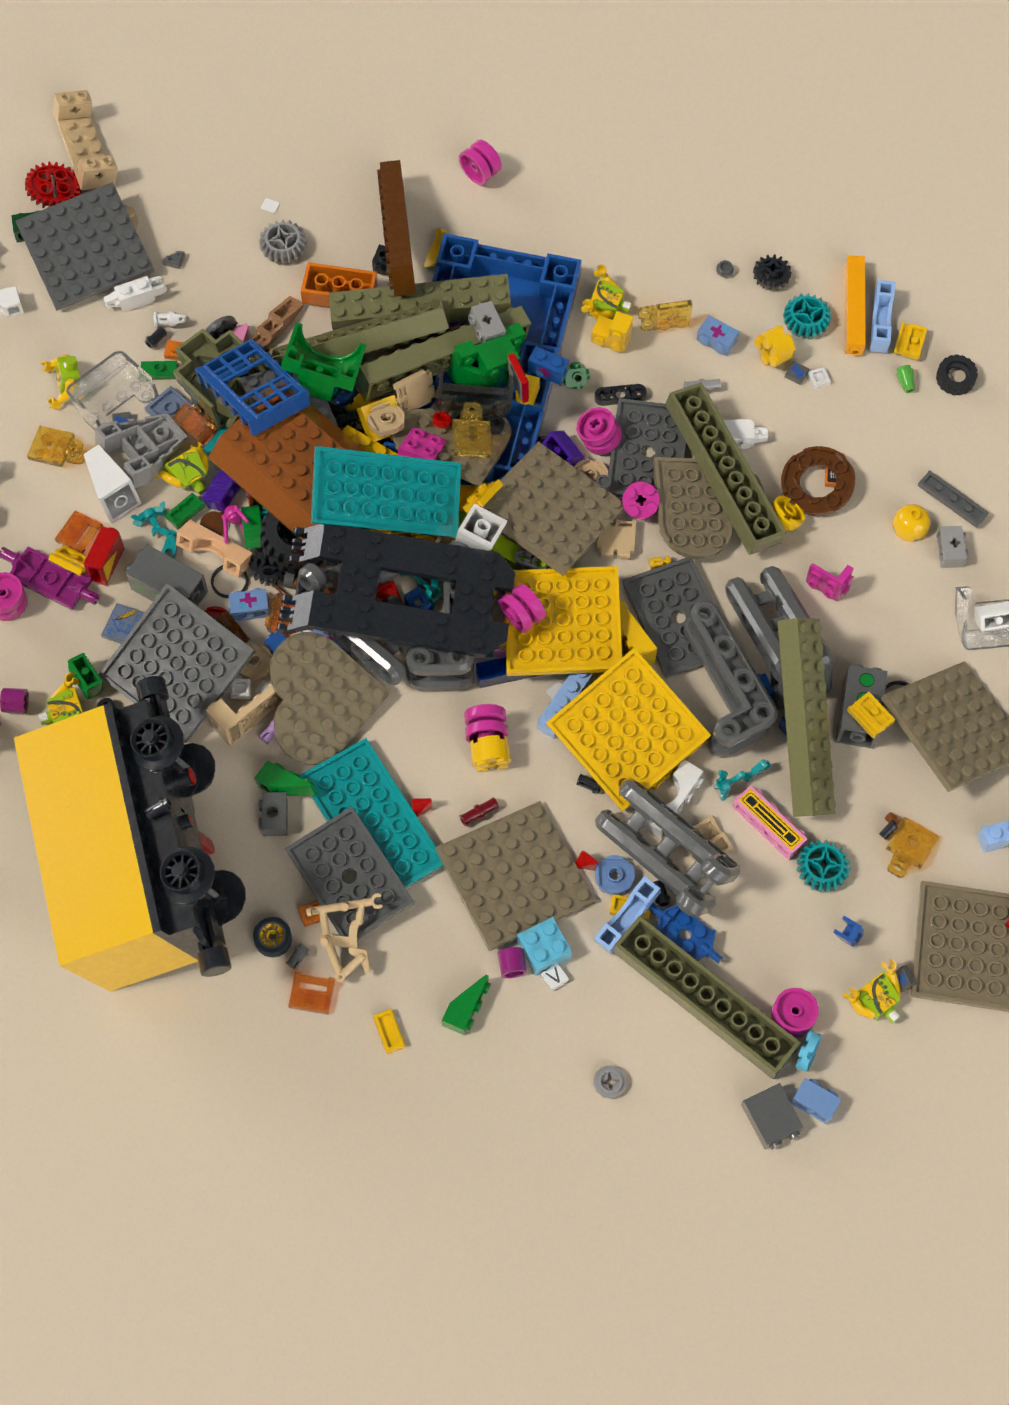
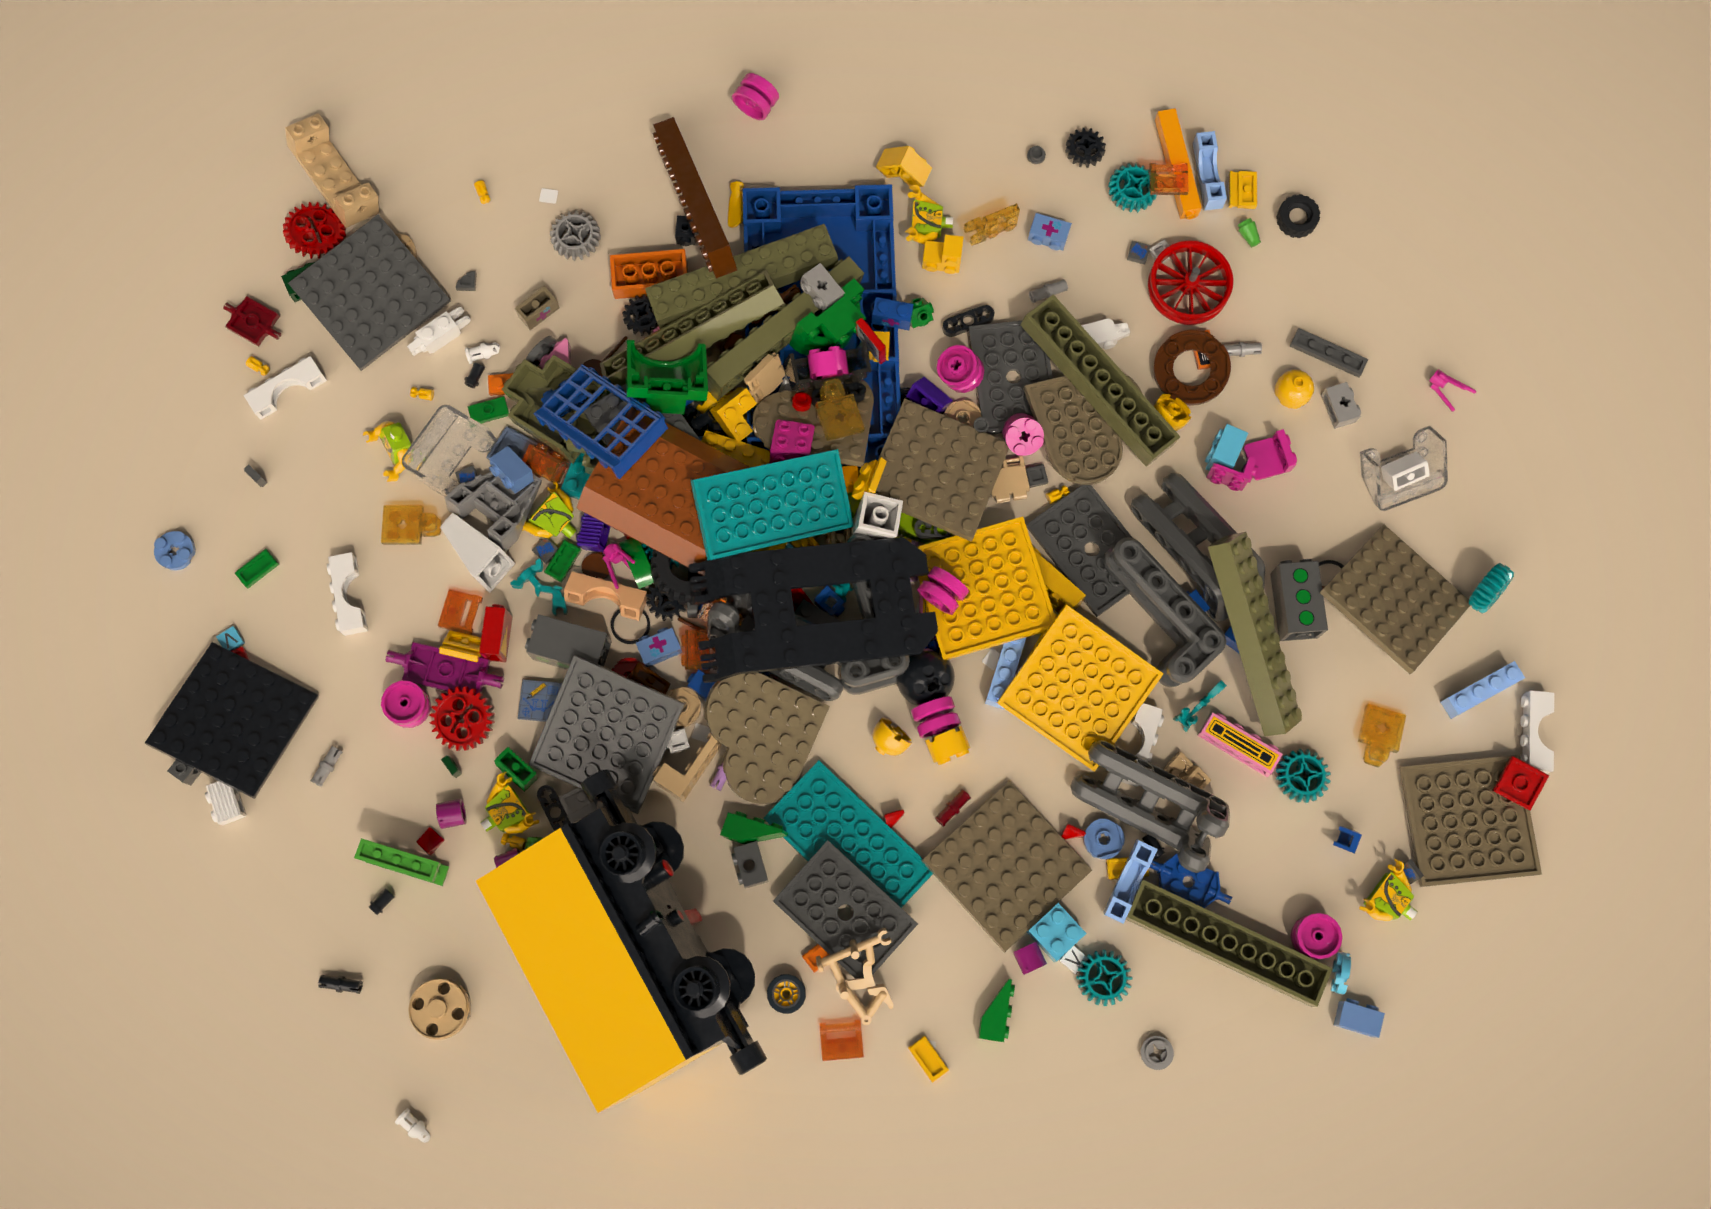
camera: 15 degrees left, 10 degrees up
(28, 660) = (451, 766): none -> dark green tile
(60, 634) = (475, 730): none -> red gear
(104, 342) = (427, 394): none -> yellow piece
(162, 419) = (511, 469): none -> medium blue brick
(172, 498) = (545, 550): none -> dark grey tile
(211, 188) = (480, 187): none -> yellow piece
(229, 293) = (537, 308): none -> dark tan brick
(277, 322) = (594, 330): medium nougat slope -> none
(298, 956) = (817, 1007): dark grey pin -> none
(322, 320) = (637, 308): none -> black gear
(389, 427) = (750, 429): tan plate -> none
(437, 734) = (889, 738): none -> yellow cylinder
(474, 389) = (827, 363): none -> dark pink brick
(480, 682) = (923, 671): none -> black piece
(586, 999) = (1106, 986): none -> teal gear
(588, 783) = (1051, 749): black pin -> none
(600, 248) = (904, 163): none -> yellow brick
(644, 542) = (1036, 476): none -> dark grey tile
(772, 1116) = (1322, 1046): dark grey brick -> none
(775, 346) = (1112, 231): yellow brick -> none
(831, 554) = (1226, 447): none -> medium azure brick
(837, 407) = (1190, 282): none -> red wheel
(840, 317) = (1168, 183): none -> clear orange plate
(870, 714) = (1315, 613): yellow plate -> none
(871, 477) = (1244, 349): none -> light grey pin
(872, 576) = (1272, 455): none -> dark pink bracket
(891, 826) = (1358, 716): black arm -> none

